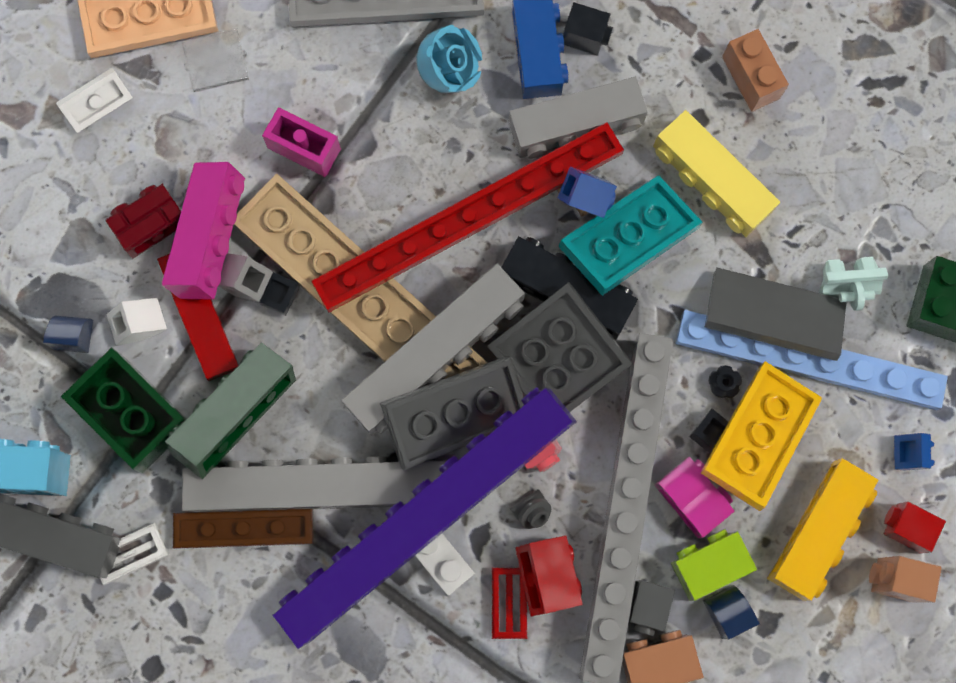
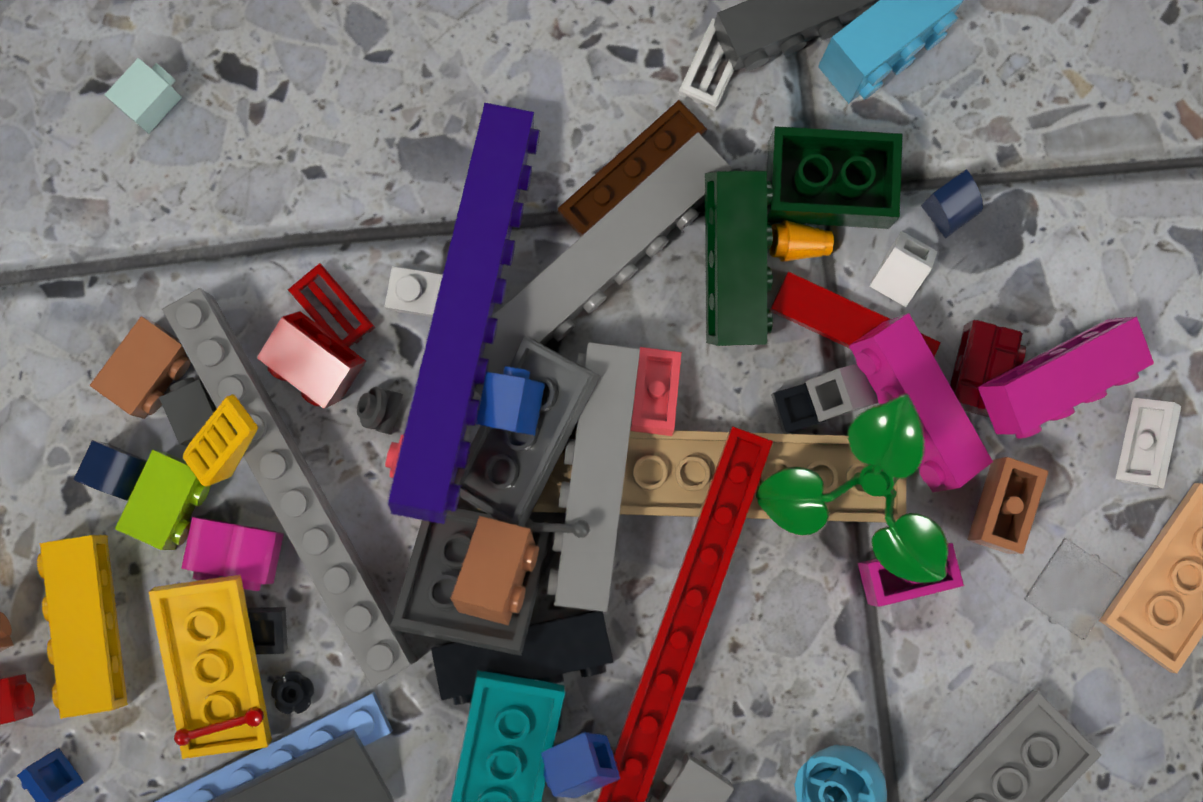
camera: 140 degrees right, 5 degrees up
(105, 172) = (1066, 377): none -> dark pink brick
(181, 390) = (799, 241): none -> light orange cone
(210, 131) = (1007, 505): none -> nougat brick
(252, 212) = (892, 447): none -> green plant
(351, 372) = (656, 392): none -> coral plate
(447, 432) = (510, 401): none -> blue brick
(472, 321) = (579, 528): none -> dark grey hinge
(542, 342) = (495, 571): none -> nougat brick
(650, 564) = (217, 447): none -> yellow slope
(760, 383) = (252, 718): none -> red hinge

